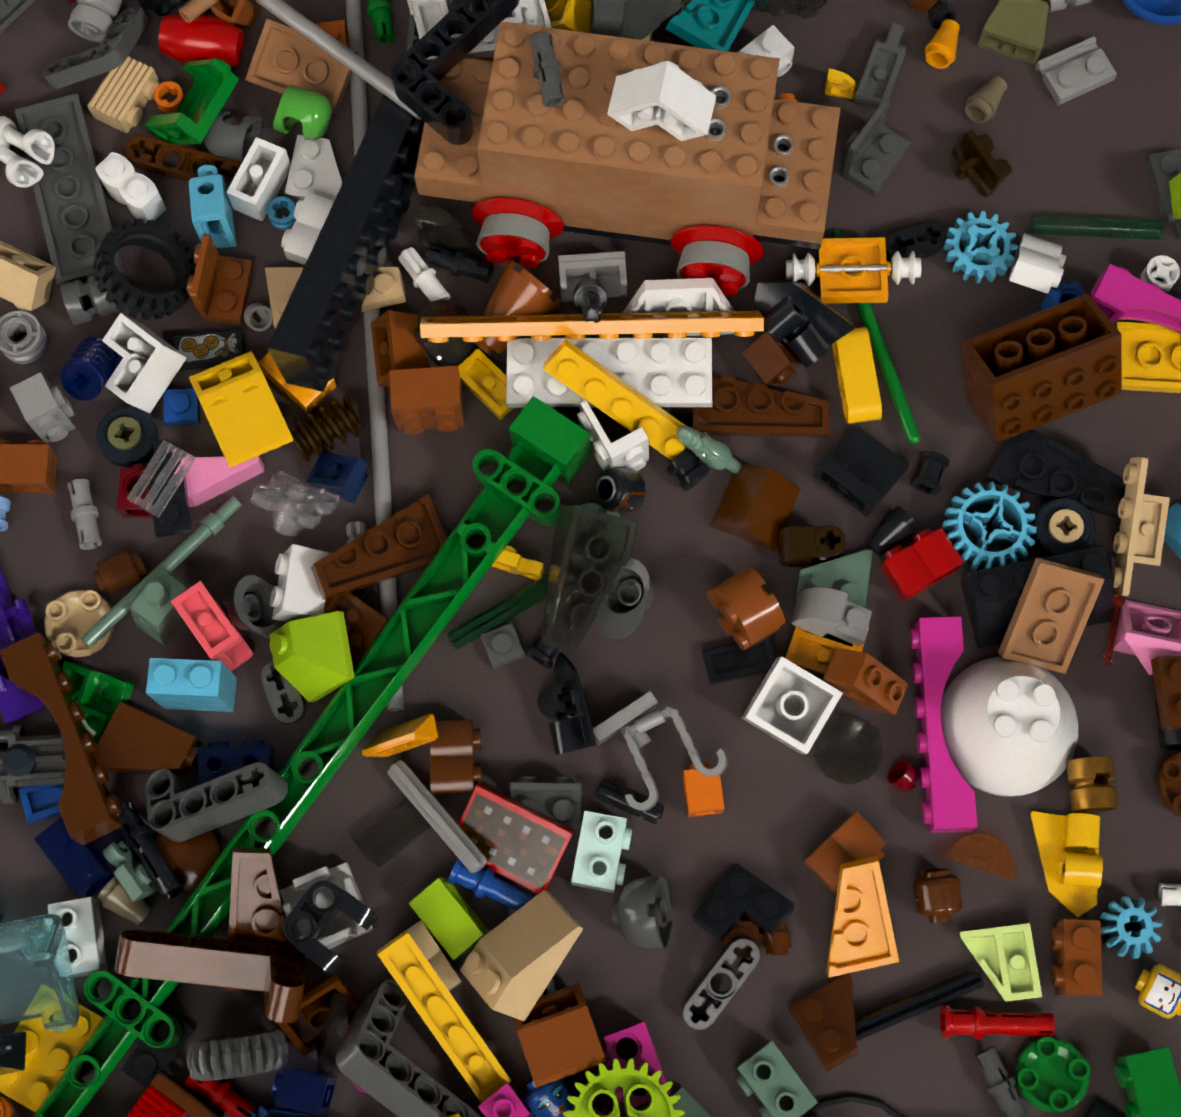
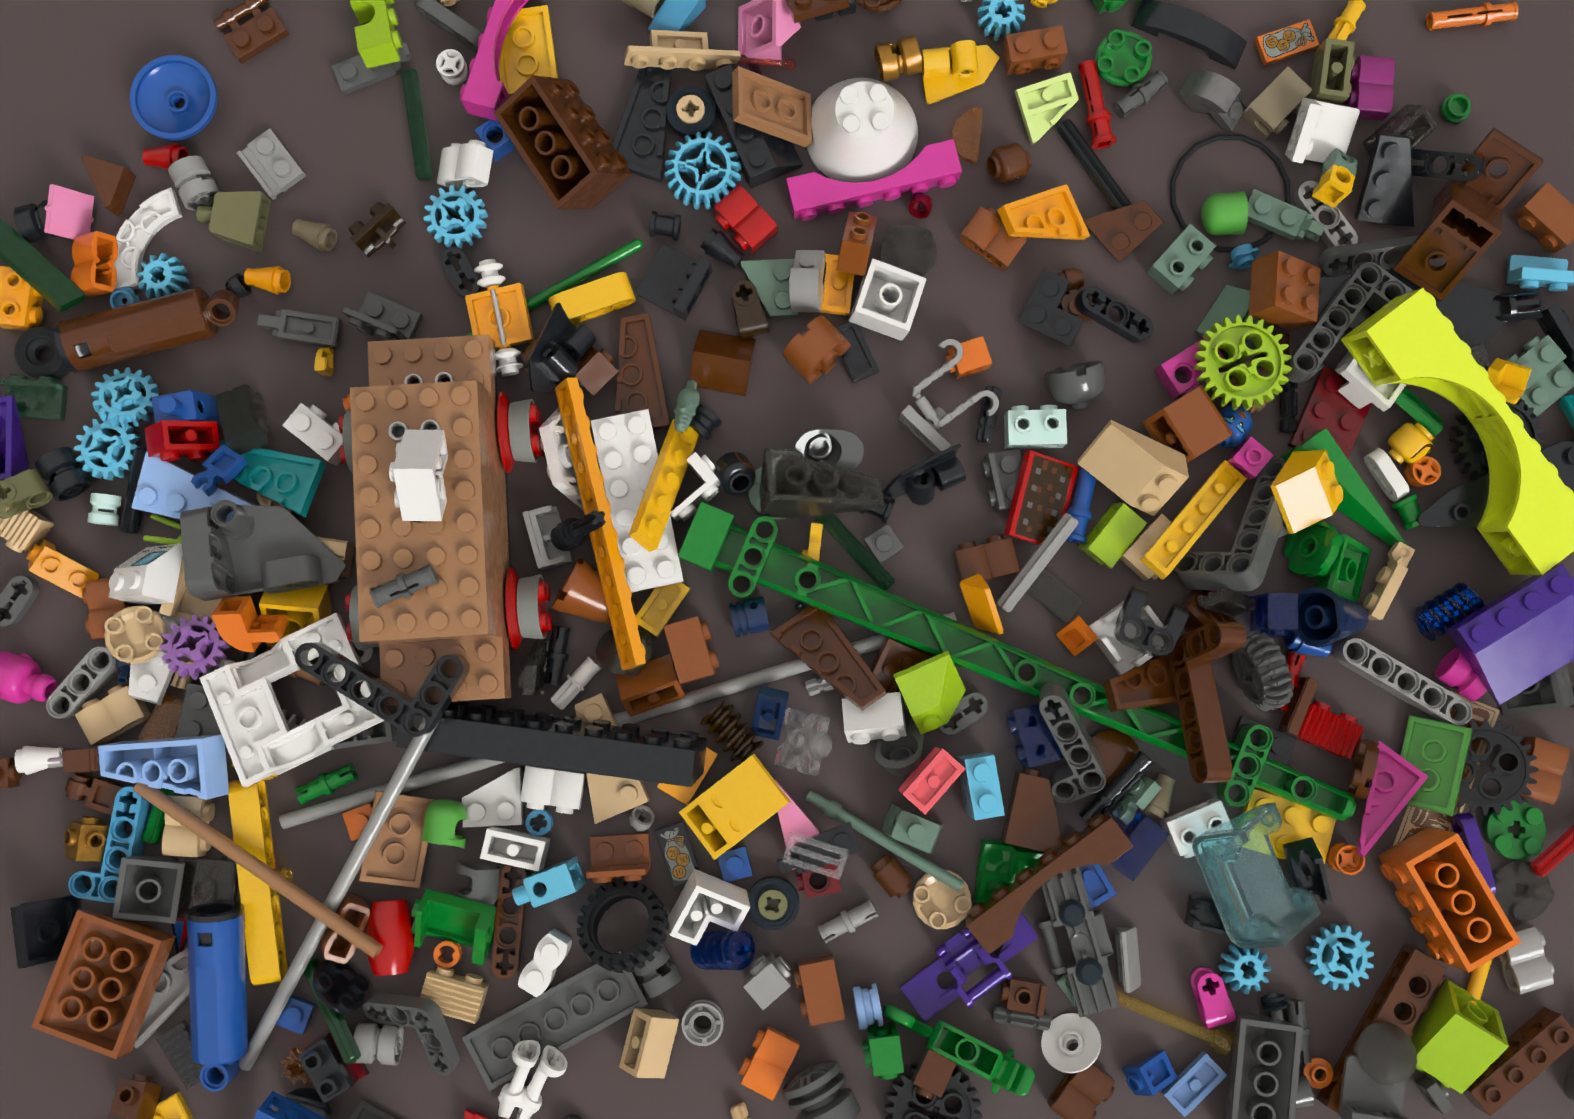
camera: 105 degrees left, 10 degrees up
(339, 846) = (1076, 635): none -> orange plate
(451, 474) = (749, 616): none -> dark blue piece

